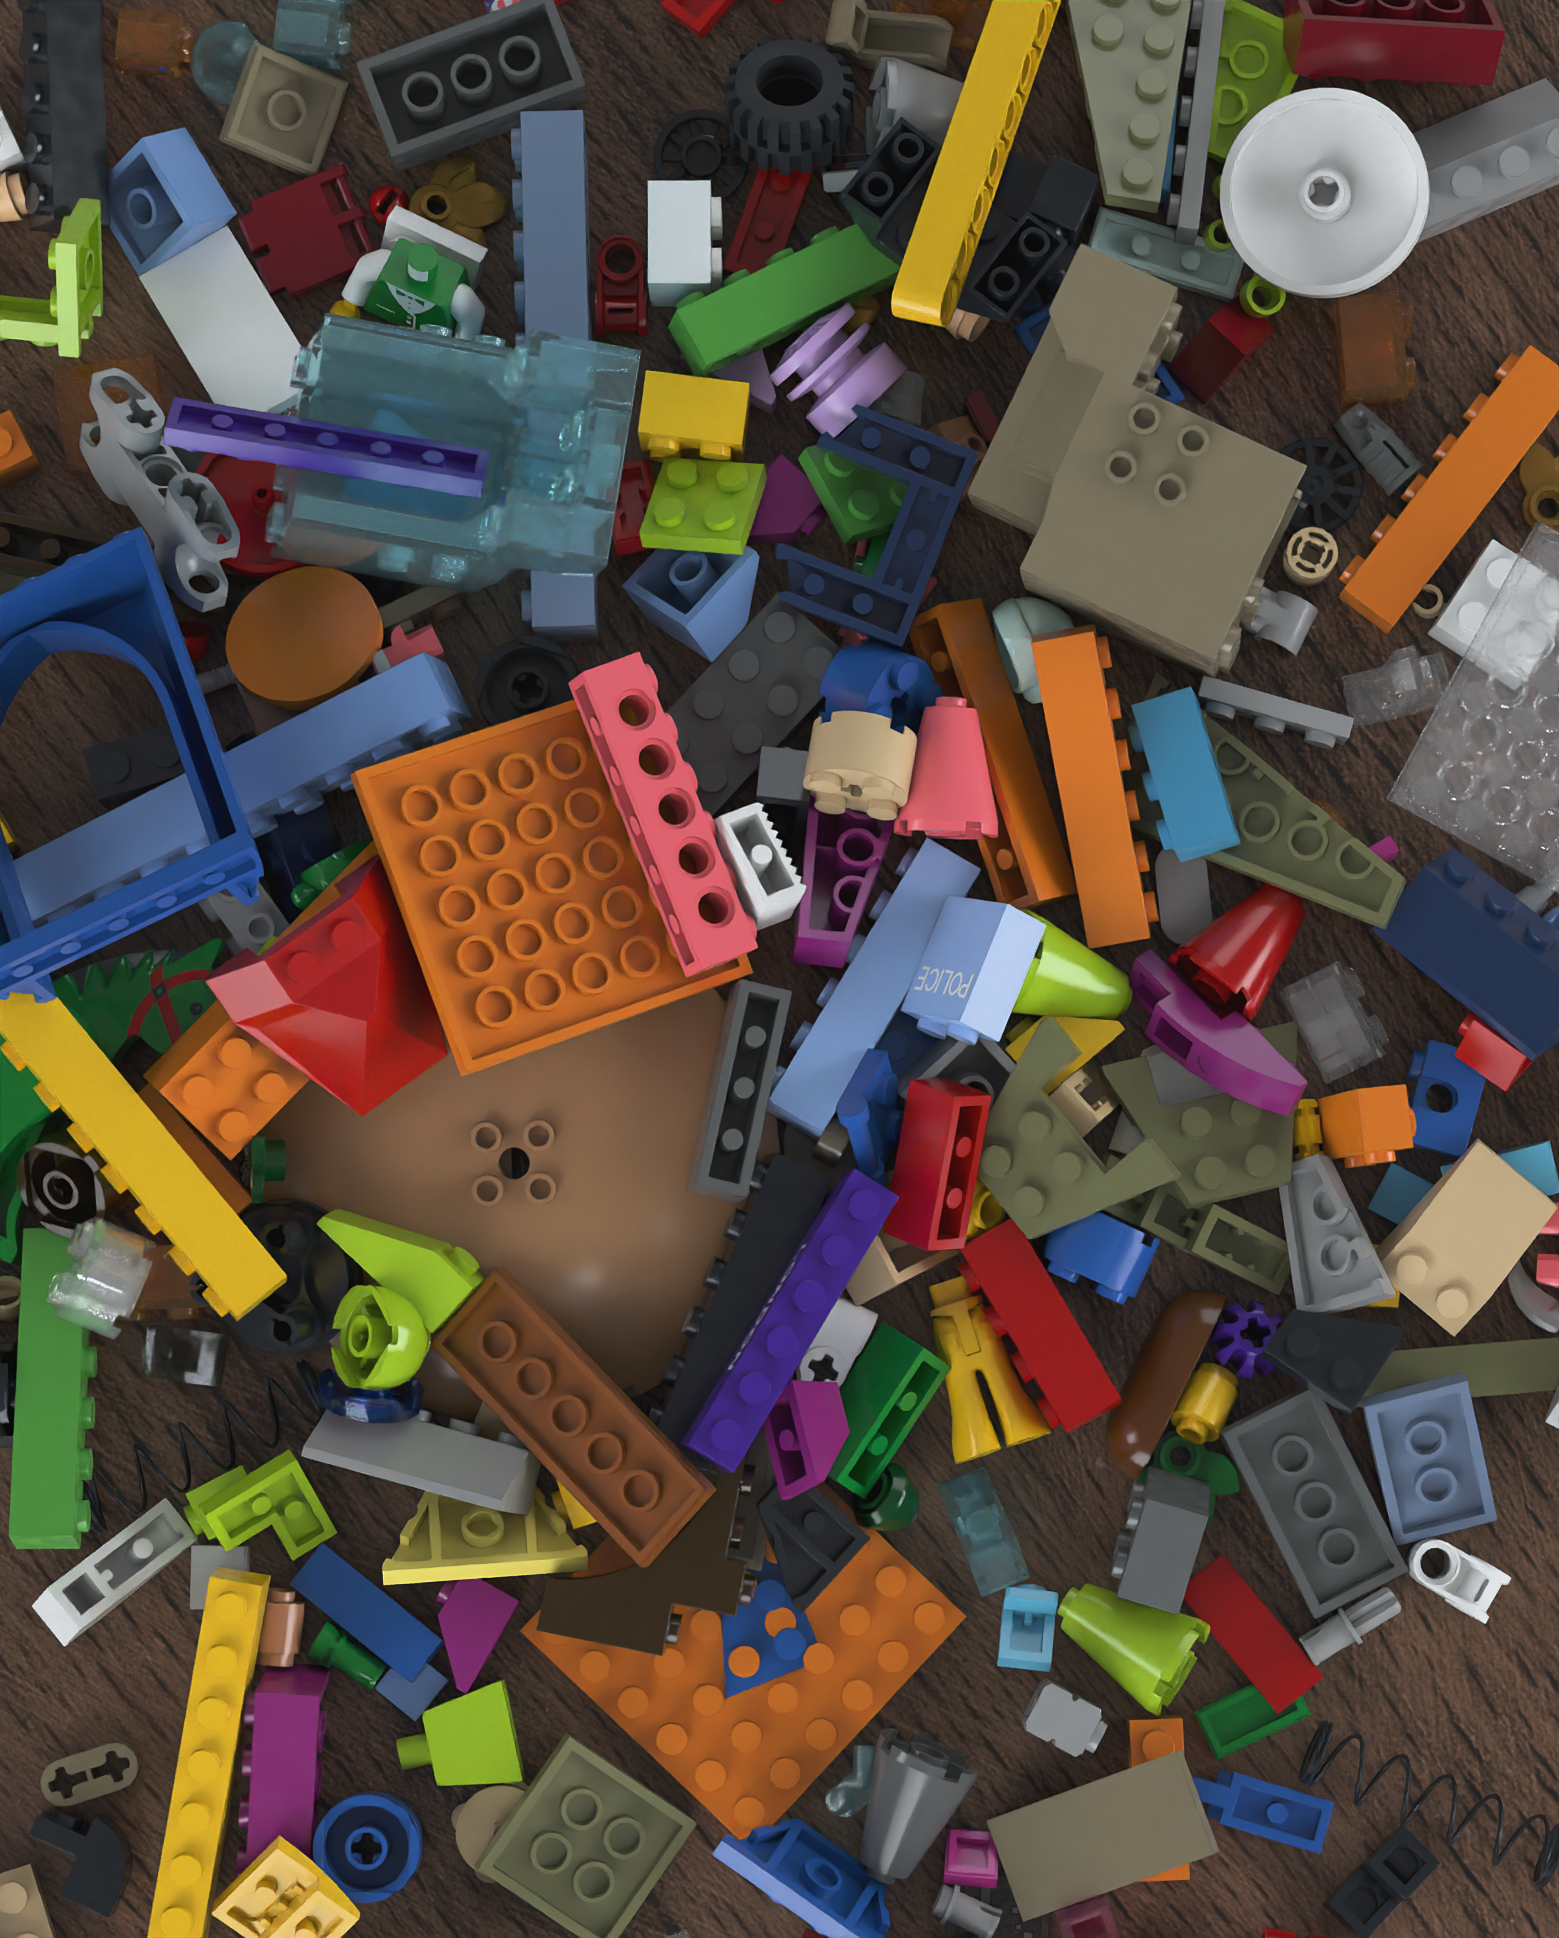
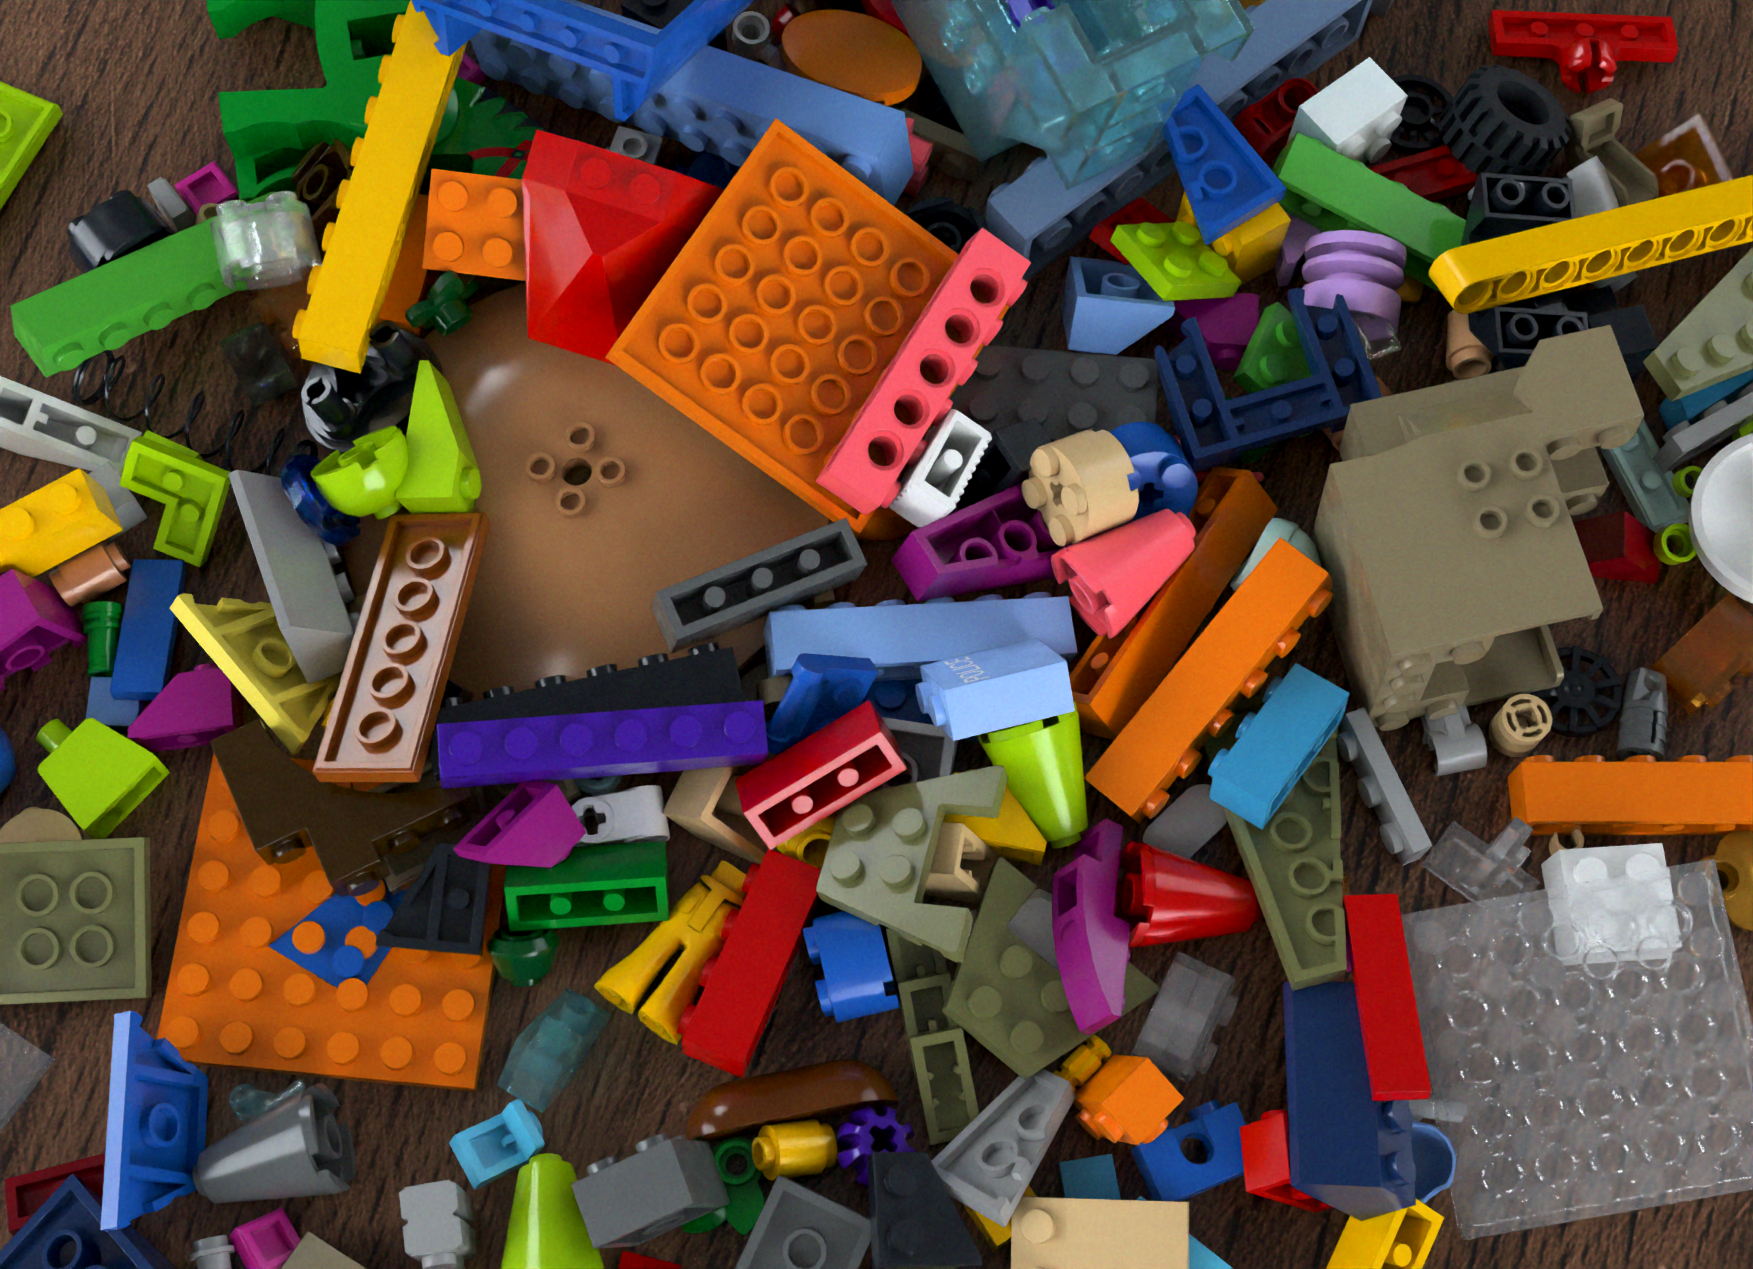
camera: 45 degrees right, 15 degrees down
(681, 416) = (1217, 166): none -> blue wing
(1446, 865) = (1385, 998): none -> red tile

